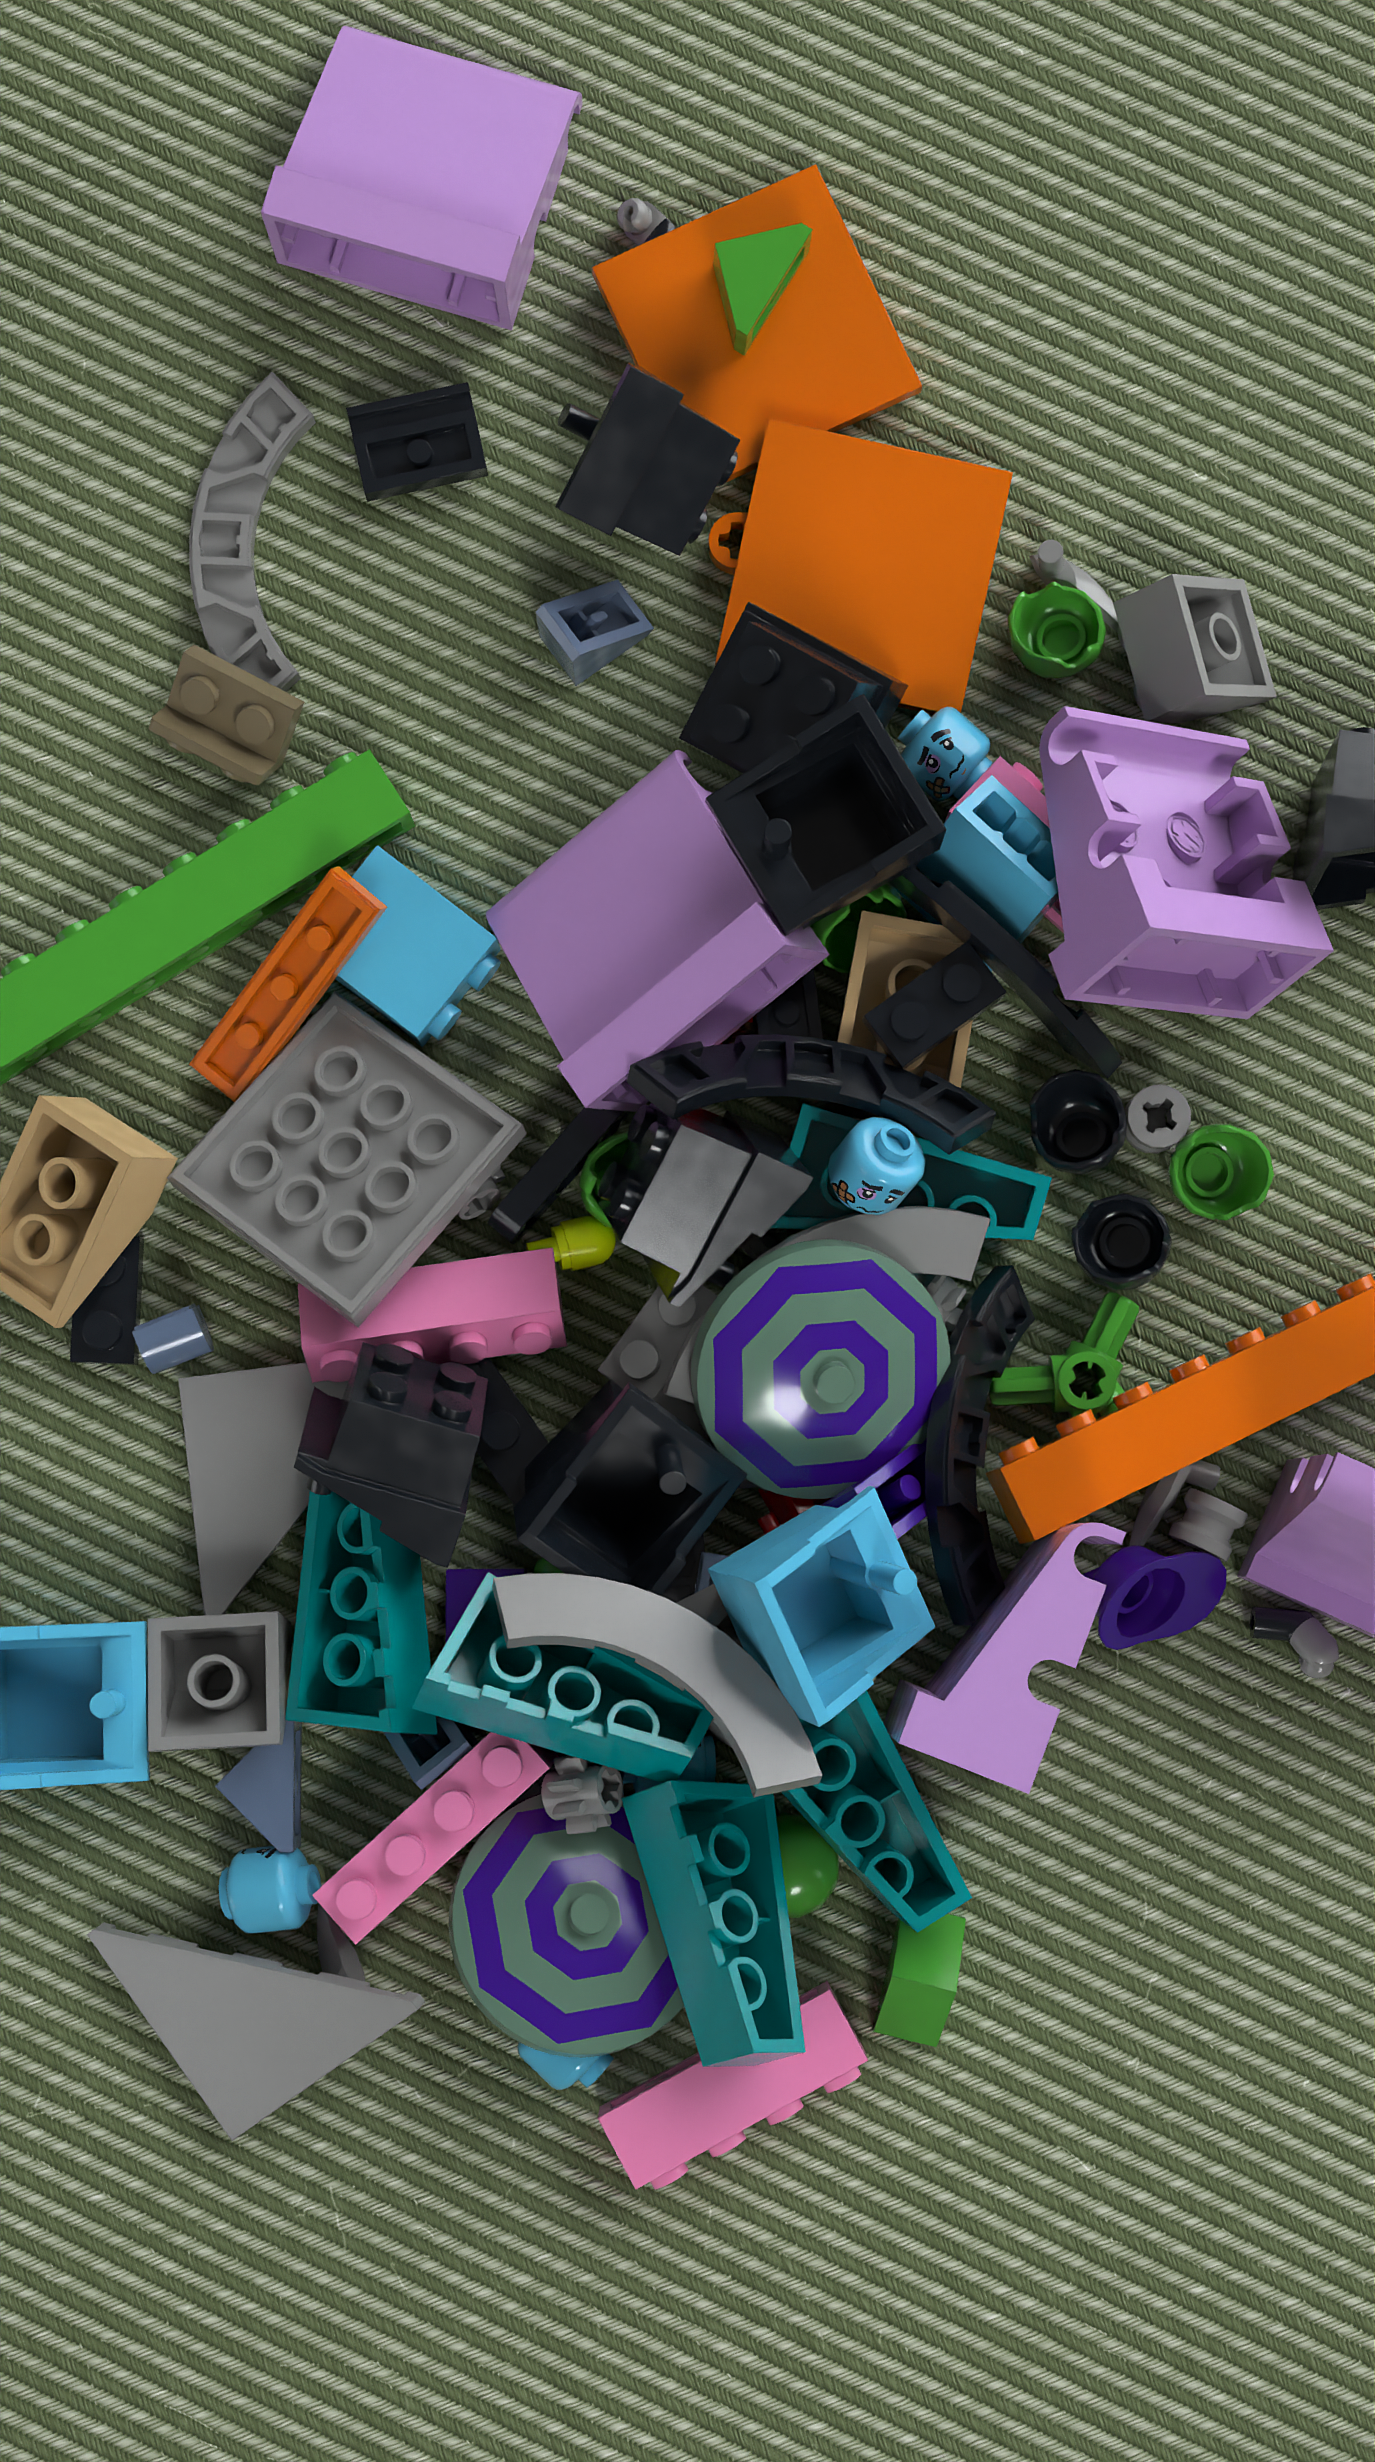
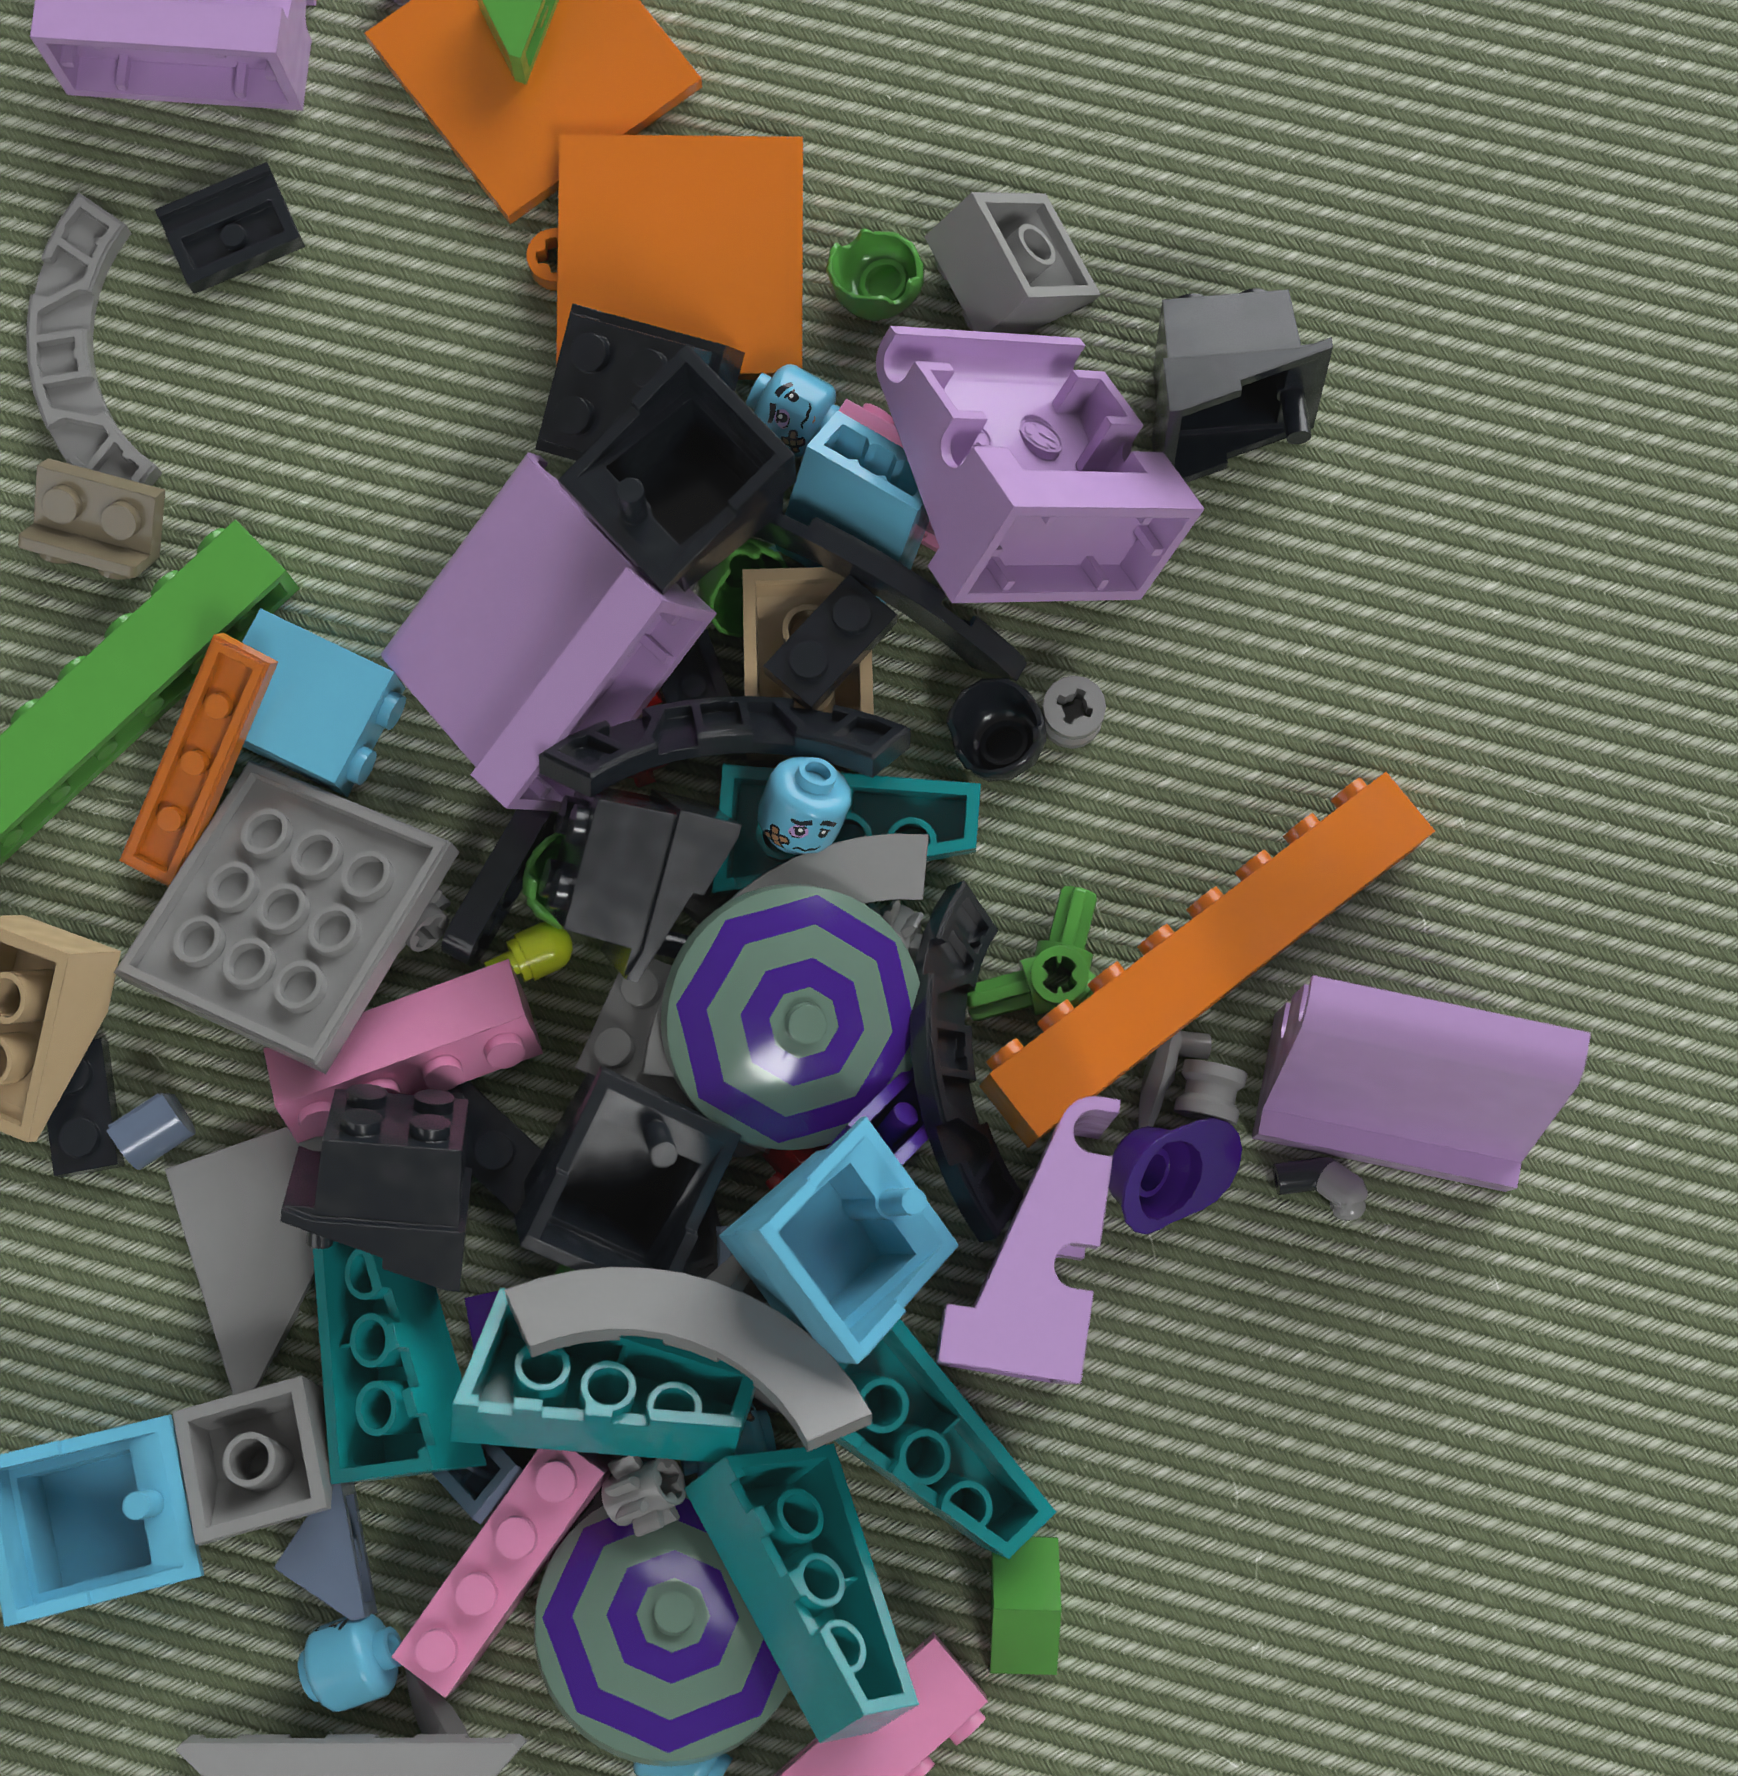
camera: 10 degrees left, 5 degrees down
(591, 628) = (429, 366): sand blue slope -> none
(646, 463) = (444, 188): black piece -> none
(807, 1865) = (887, 1518): bright green hair -> none
(1053, 567) = (859, 215): light grey bar -> none
(1121, 1241) = (1065, 835): black hair -> none
(1220, 1171) = (1145, 747): bright green hair -> none

